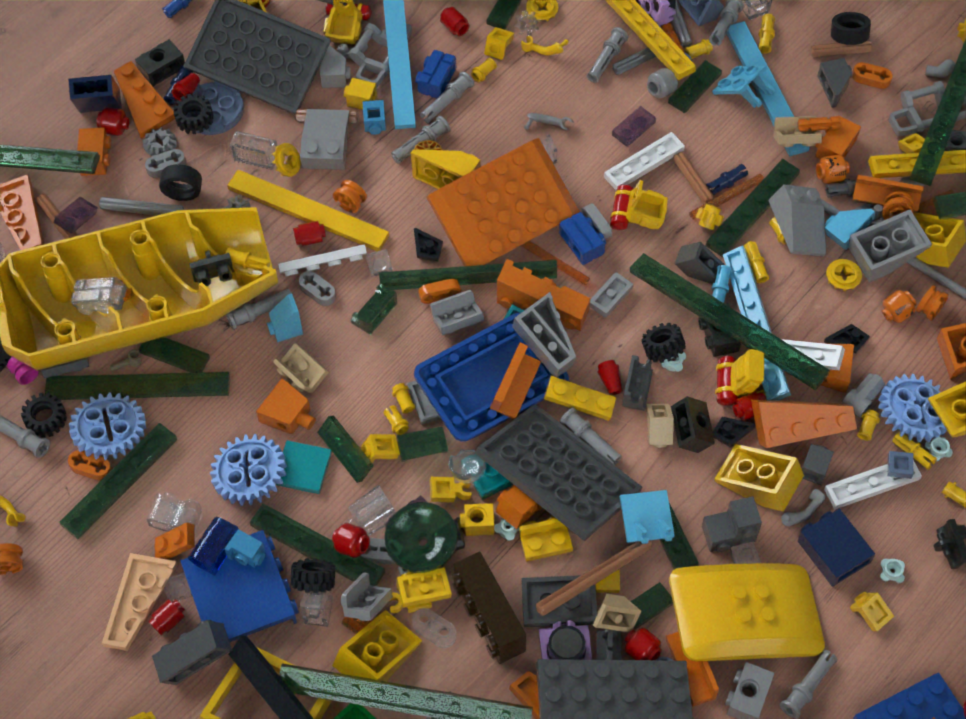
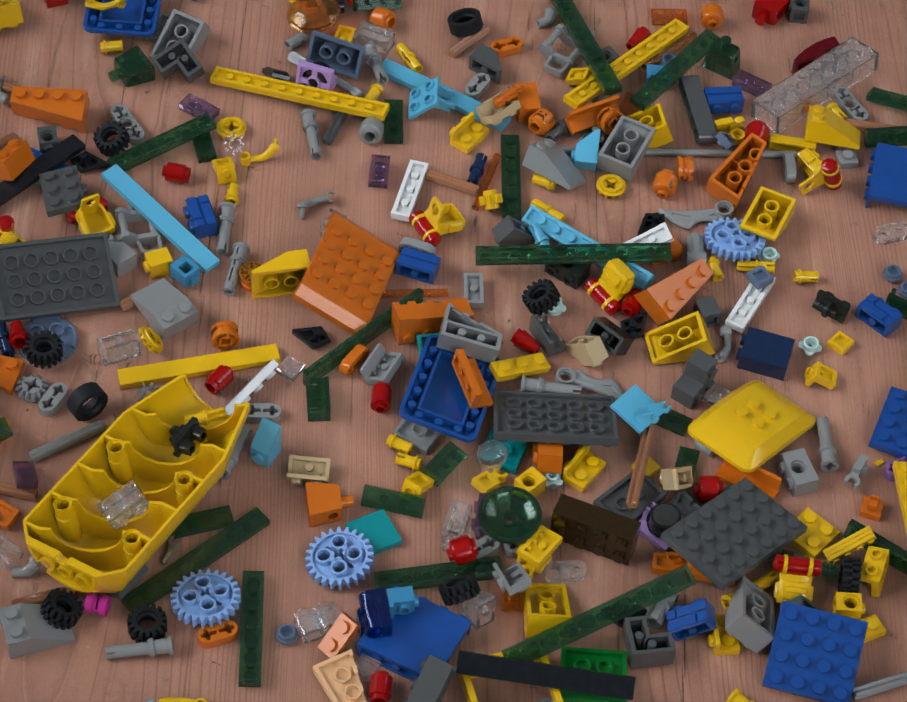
camera: 45 degrees left, 10 degrees down
(140, 507) = (286, 634): none -> sand blue plate
(428, 343) = (381, 397): none -> red brick
(646, 473) = (579, 377): none -> light grey piece
(752, 139) = (467, 134): none -> yellow bracket
(805, 98) = (481, 88): none -> light grey beam
(889, 355) = (687, 219): none -> light grey piece
(929, 589) = (840, 343): none -> yellow tile

